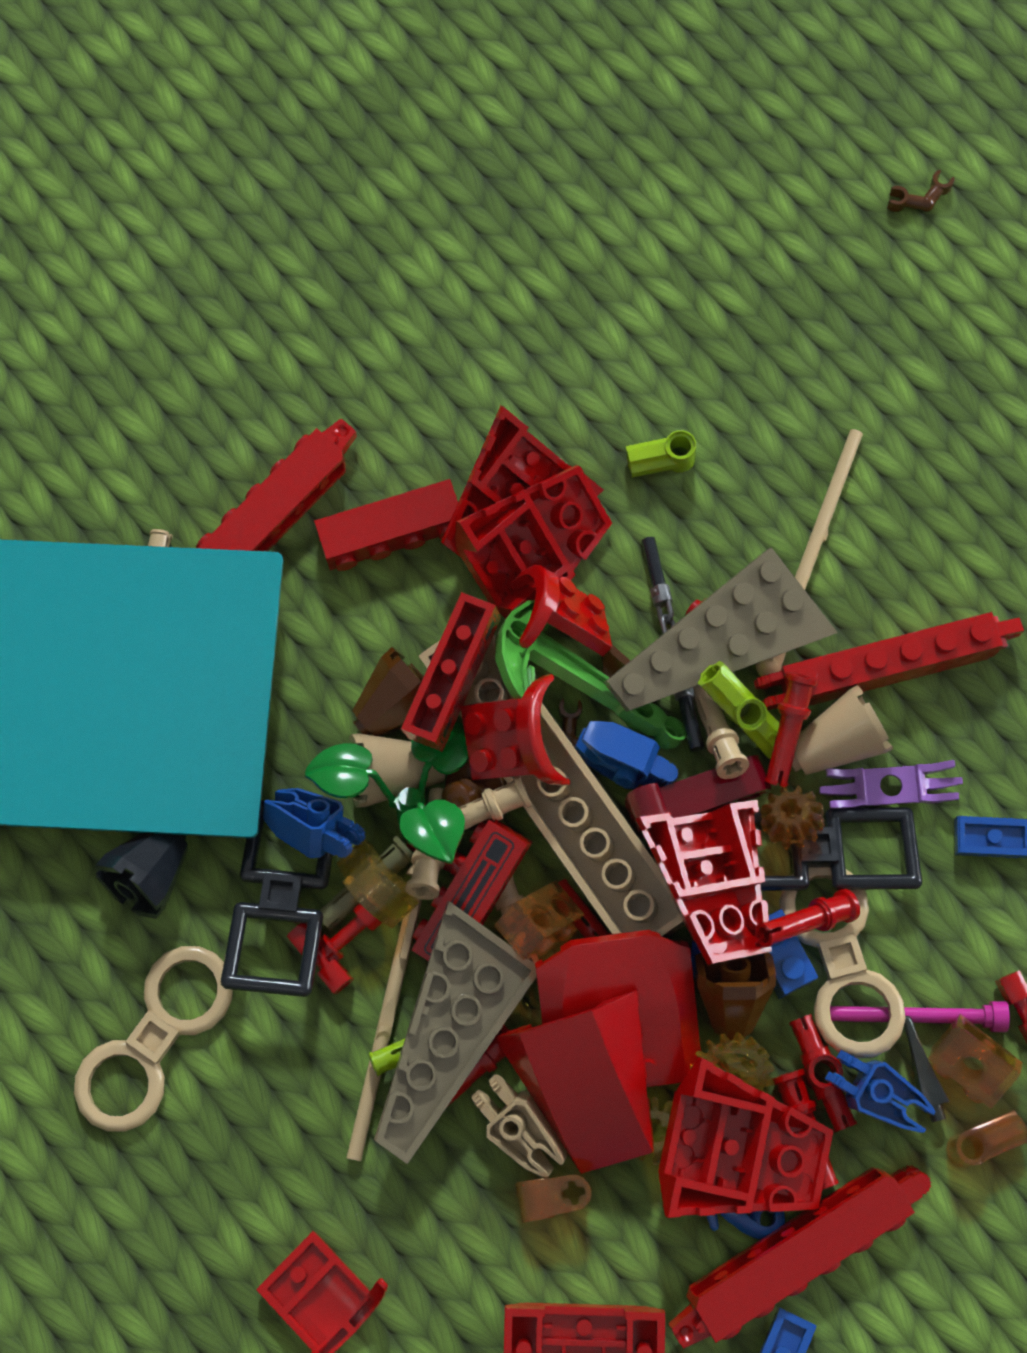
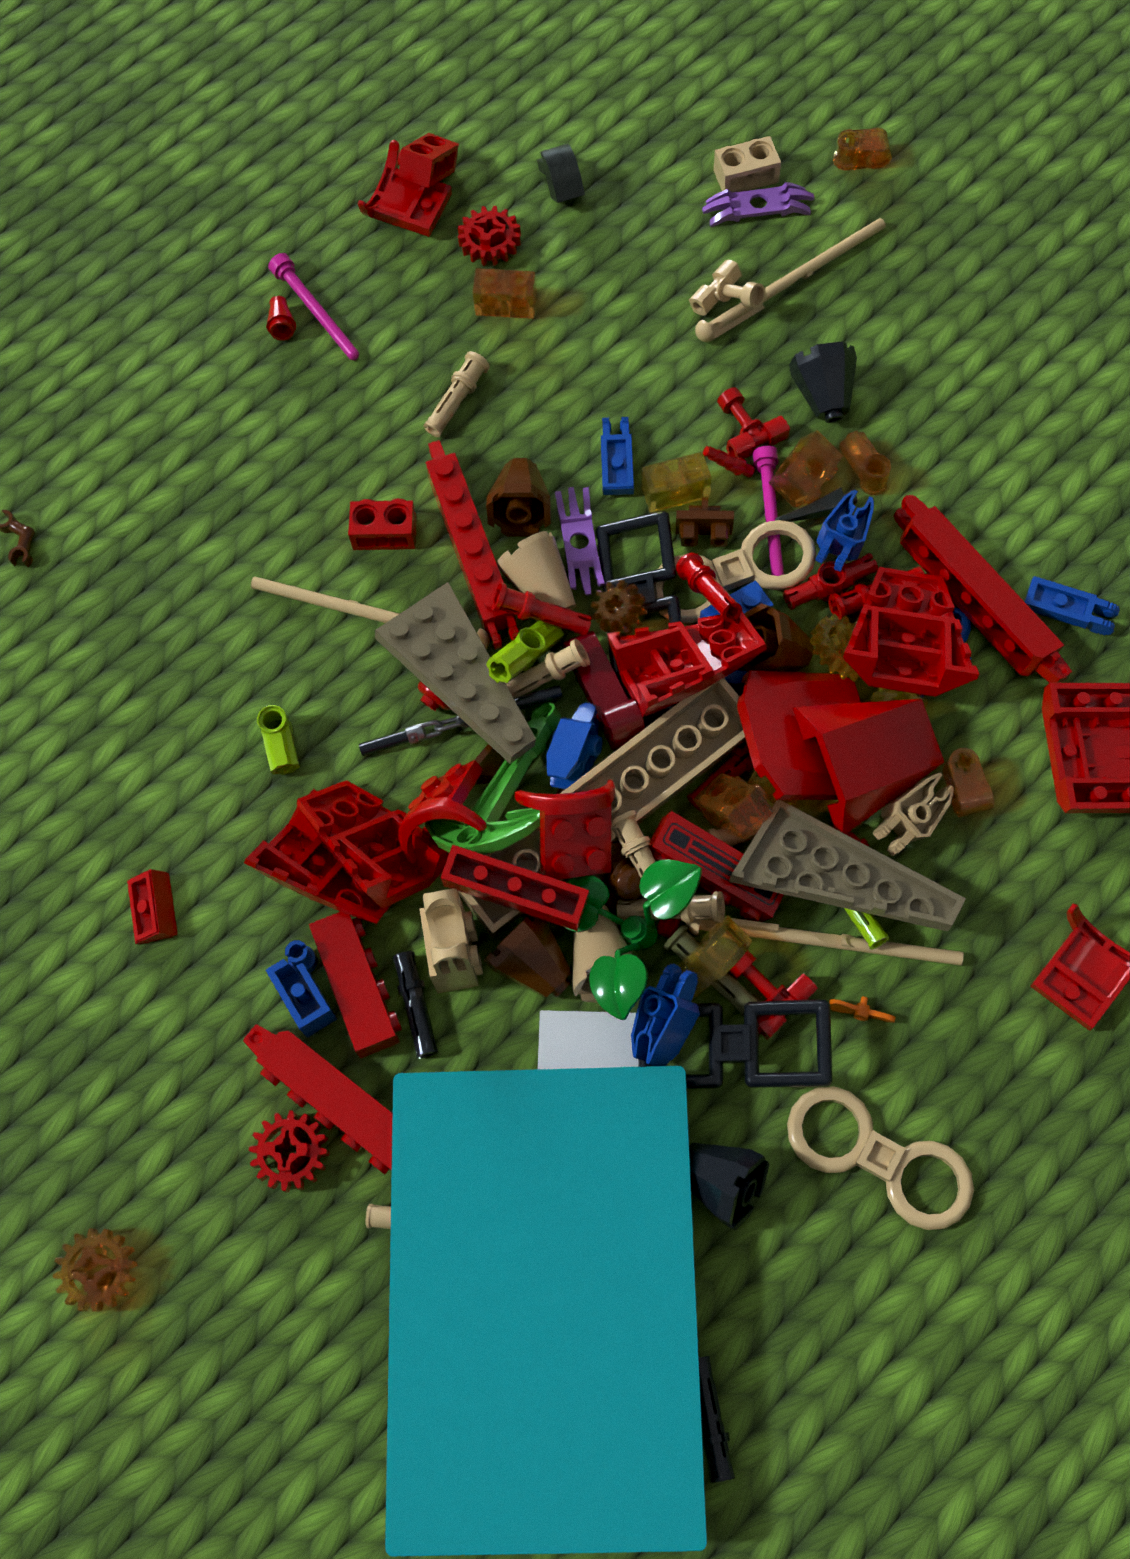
camera: 90 degrees left, 5 degrees down
(157, 296) = (96, 1285): none -> clear orange gear
(243, 467) = (288, 1166): none -> red gear
(303, 735) = (584, 1040): none -> white sticker
(307, 1041) = (860, 1010): none -> orange piece
(365, 583) = (411, 990): none -> black pin
(385, 472) = (300, 990): none -> blue hinge
(408, 612) = (448, 941): none -> tan brick
(492, 337) = (152, 906): none -> red slope
(904, 948) = (704, 521): none -> reddish brown hips
(912, 566) = (382, 532): none -> red brick
(947, 718) = (519, 500): none -> reddish brown cone
(963, 902) = (676, 482): none -> clear yellow brick
(989, 968) = (730, 462): none -> red animal

